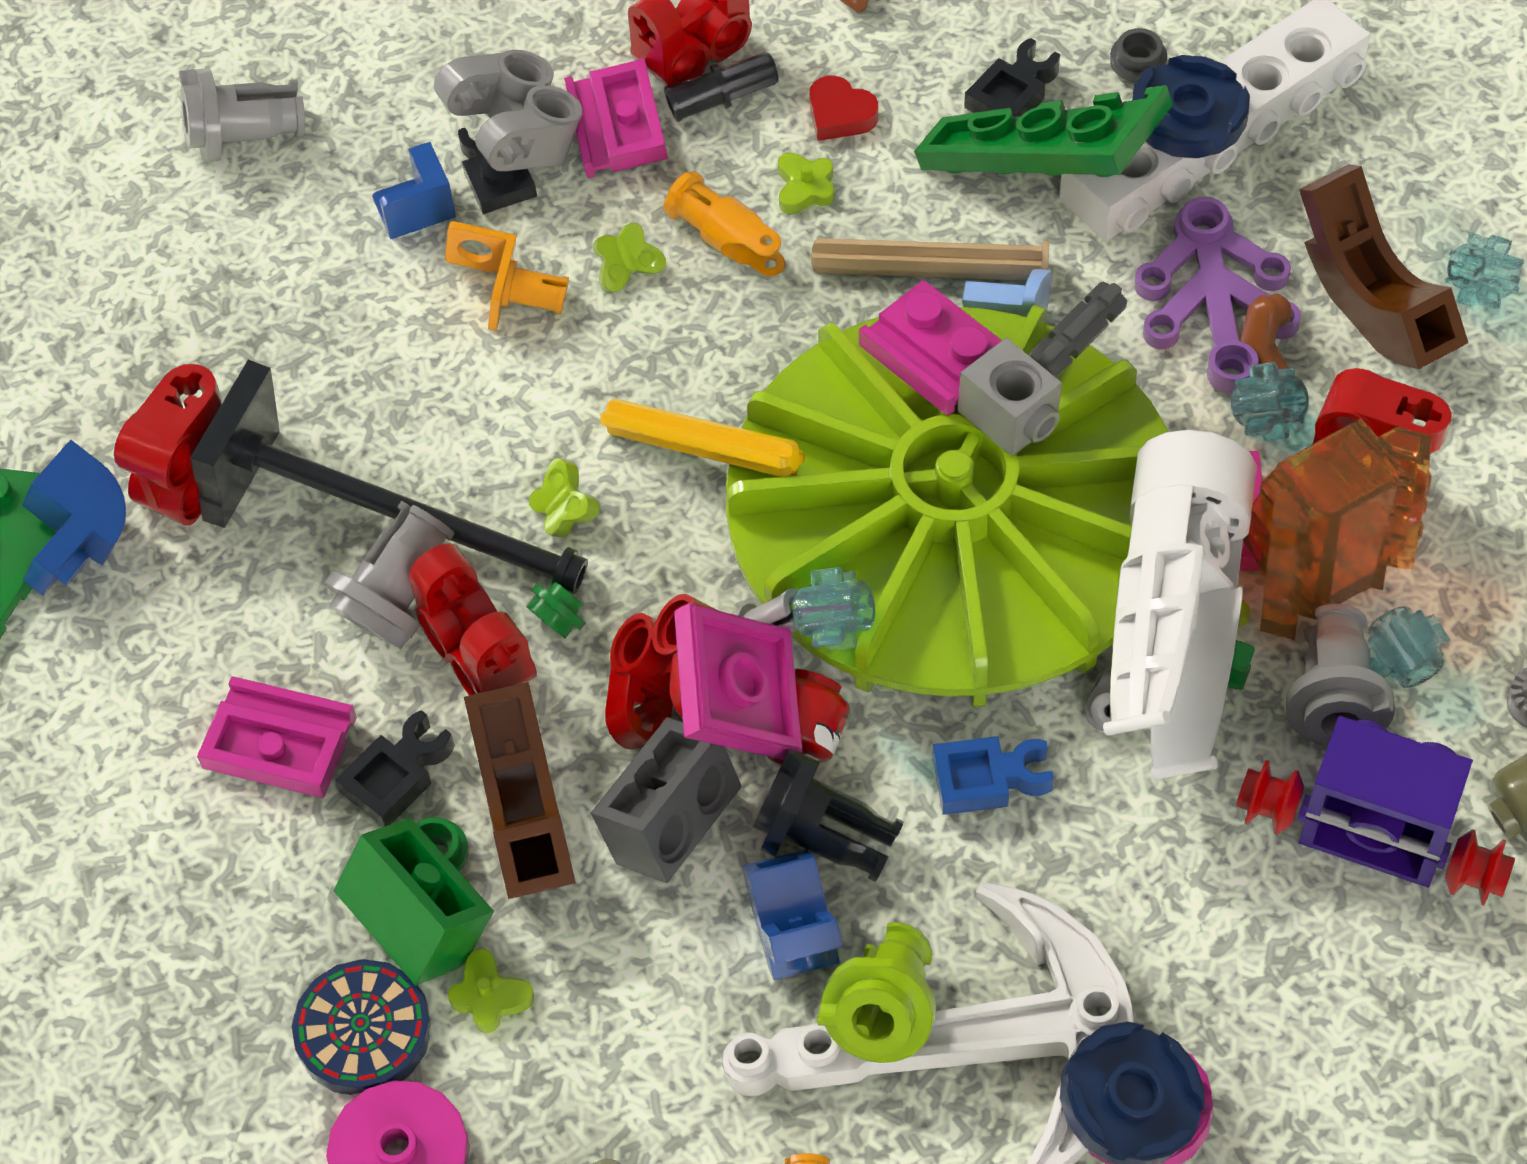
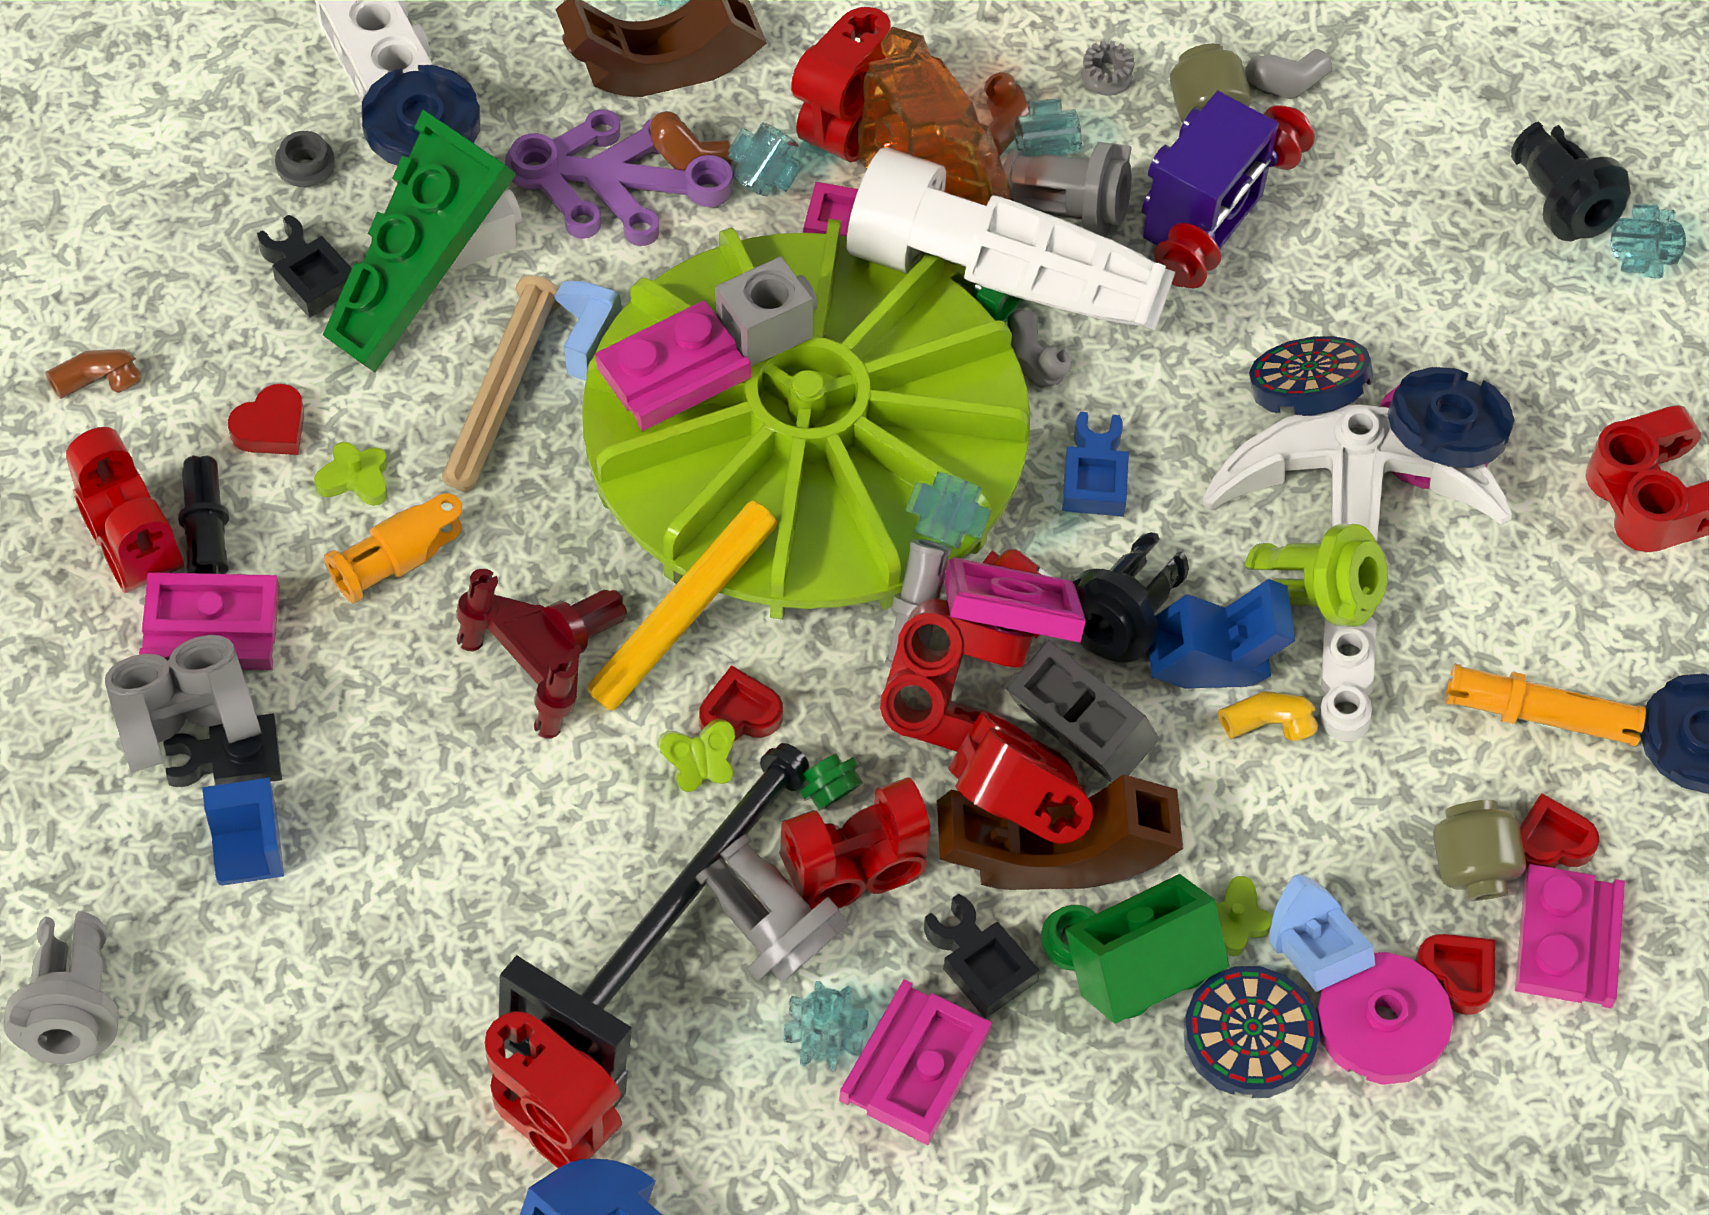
camera: 85 degrees left, 0 degrees up
(298, 653) = (833, 1040): none -> clear light blue gear
(469, 1068) = (1318, 935): none -> light blue tile
(512, 282) = (400, 758): light orange bracket -> none
(558, 714) = (1016, 780): none -> red piece
(626, 255) = (402, 646): lime piece -> none
(630, 527) = (743, 703): none -> red tile
(647, 350) = (539, 639): none -> dark red axle
(736, 991) = (1270, 708): none -> yellow arm
(1080, 328) = (688, 246): dark grey axle -> none
(1165, 955) = (1311, 375): none -> dark blue tile
(1451, 608) = (1005, 103): none -> dark orange arm

